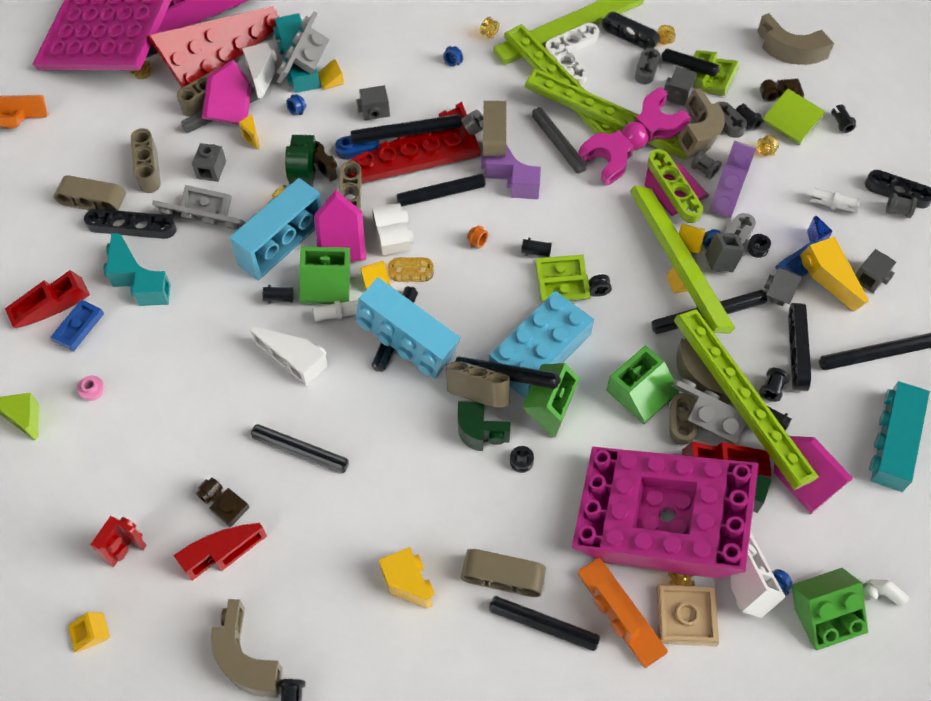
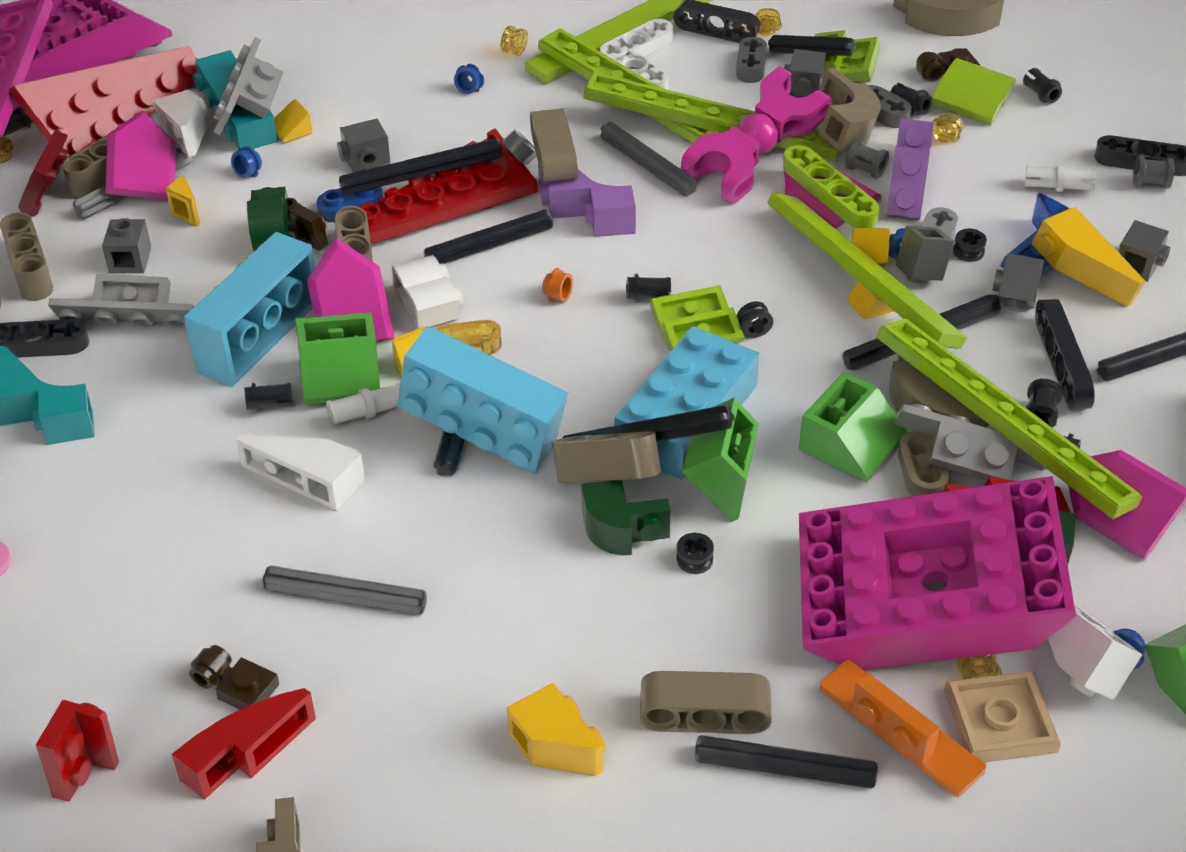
camera: 10 degrees left, 15 degrees down
(165, 98) = (44, 174): none -> dark red plate

